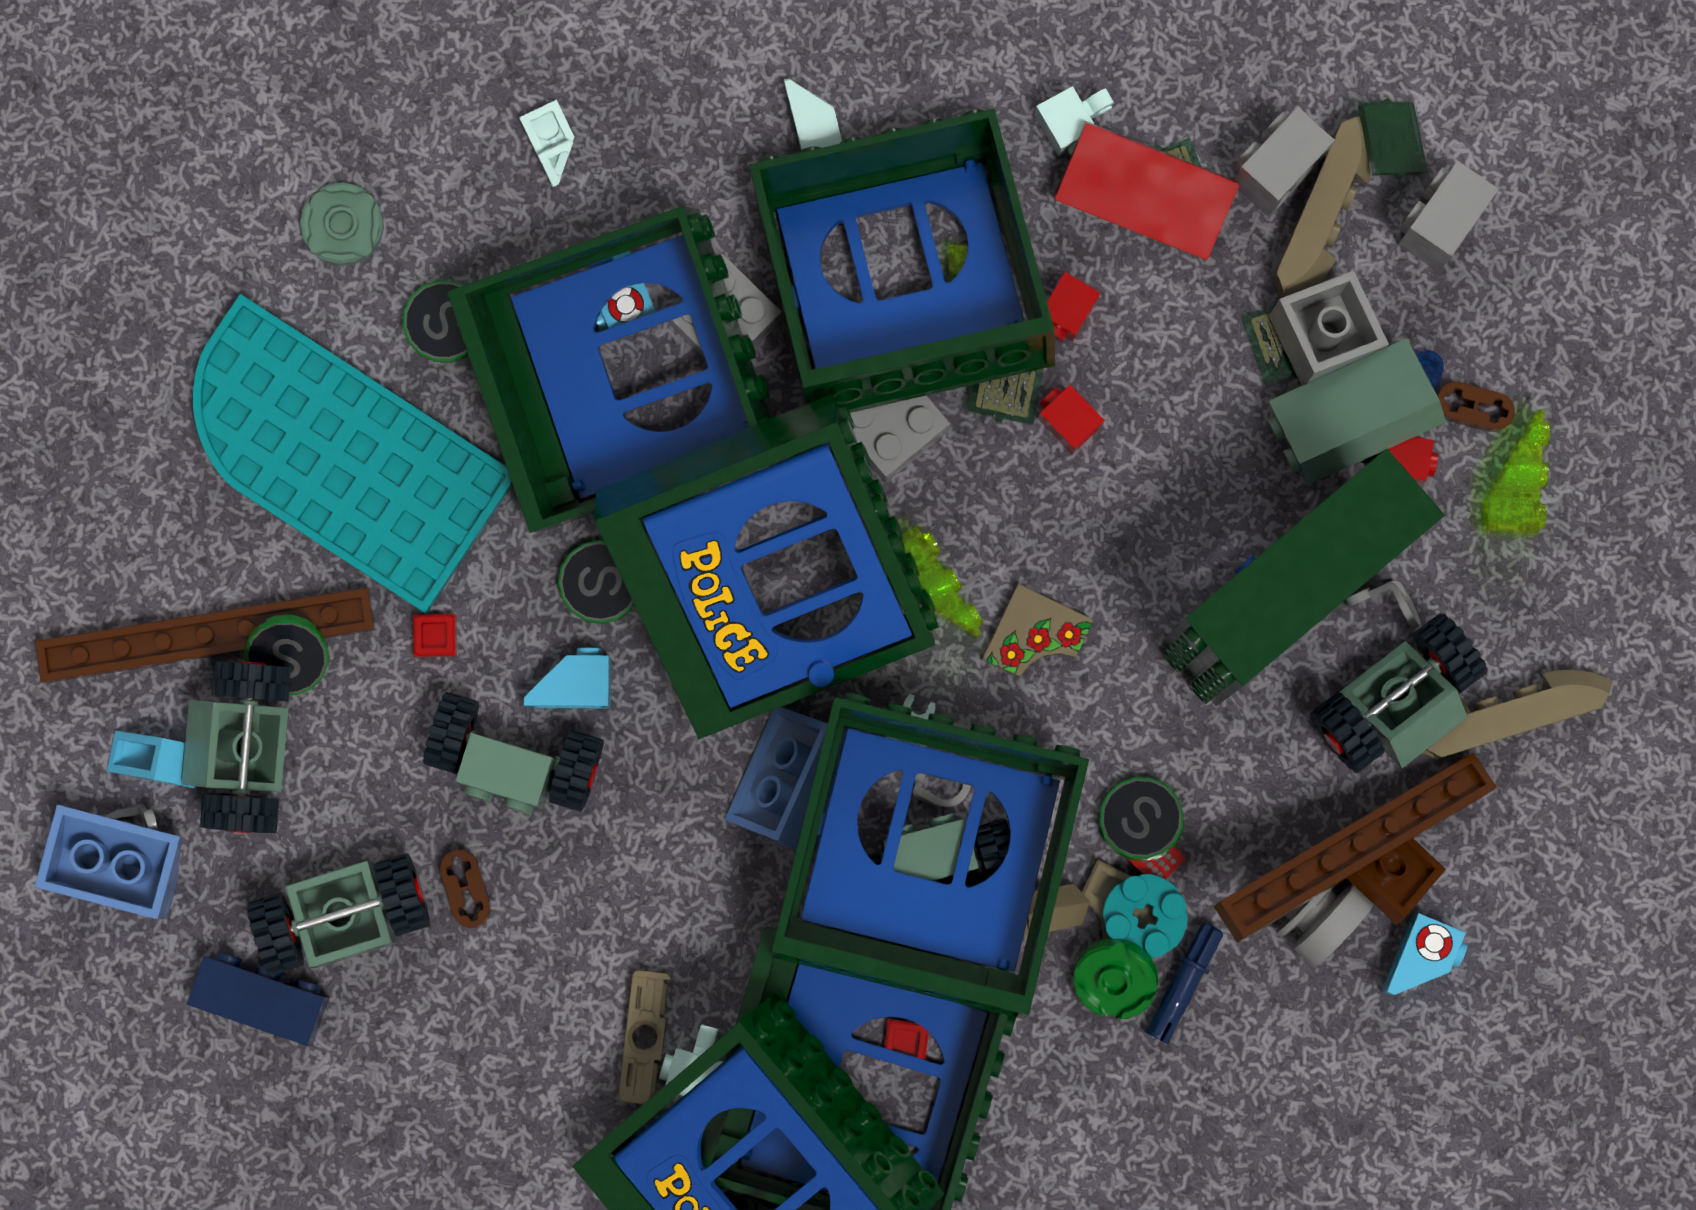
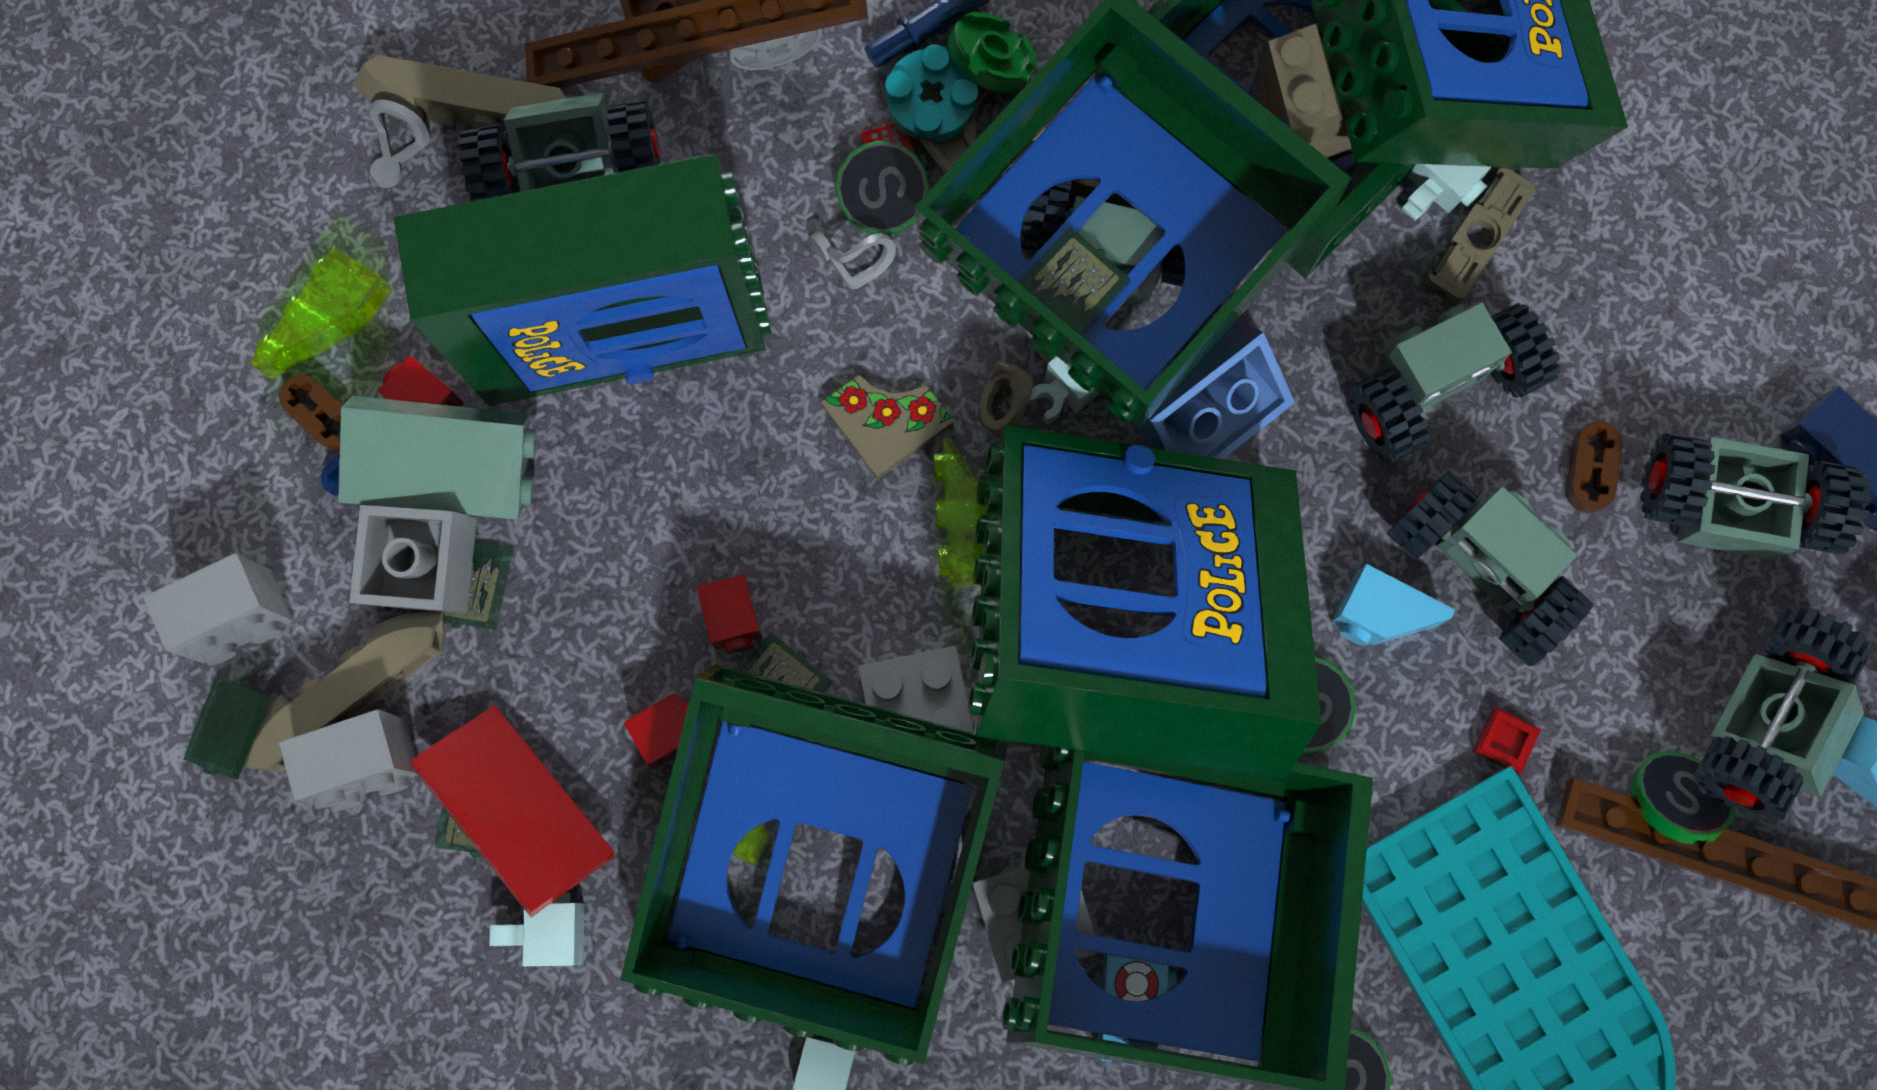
camera: 150 degrees left, 5 degrees down
(623, 899) = (1444, 361): none -> brick
(847, 1039) = (1300, 91): none -> dark tan slope
(942, 705) = (1000, 378): none -> dark tan piece
(943, 787) = (1075, 281): none -> piece
(1107, 766) = (836, 257): none -> light grey piece
(1546, 628) = (387, 170): none -> light grey piece

